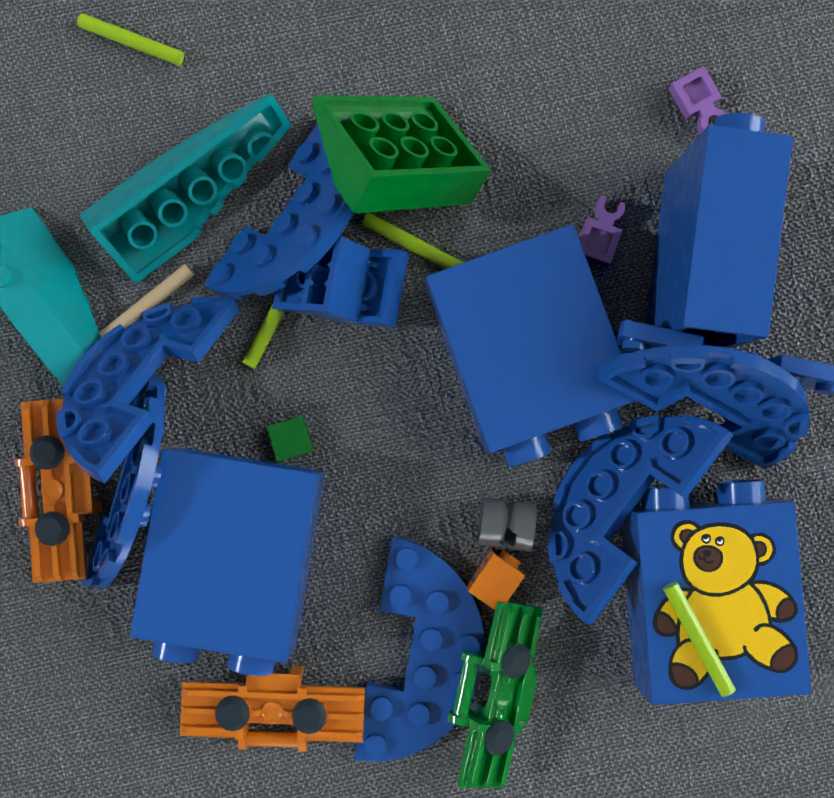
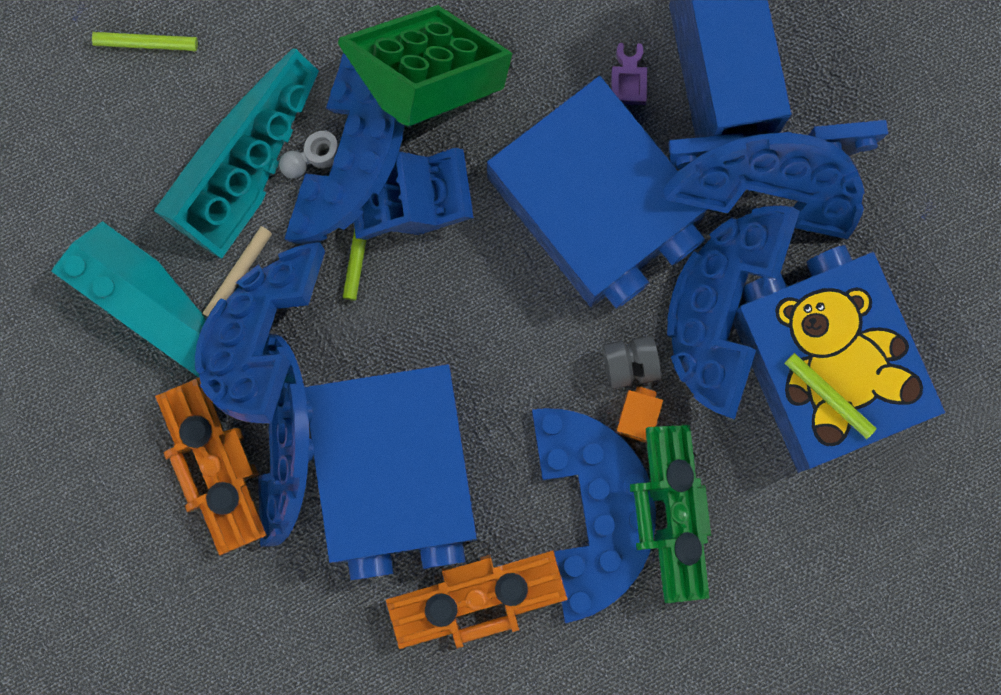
camera: 20 degrees left, 5 degrees down
(237, 211) = (294, 164): none -> light grey plate
(290, 438) = (409, 351): green tile -> none
(409, 241) = (458, 140): lime bar -> none

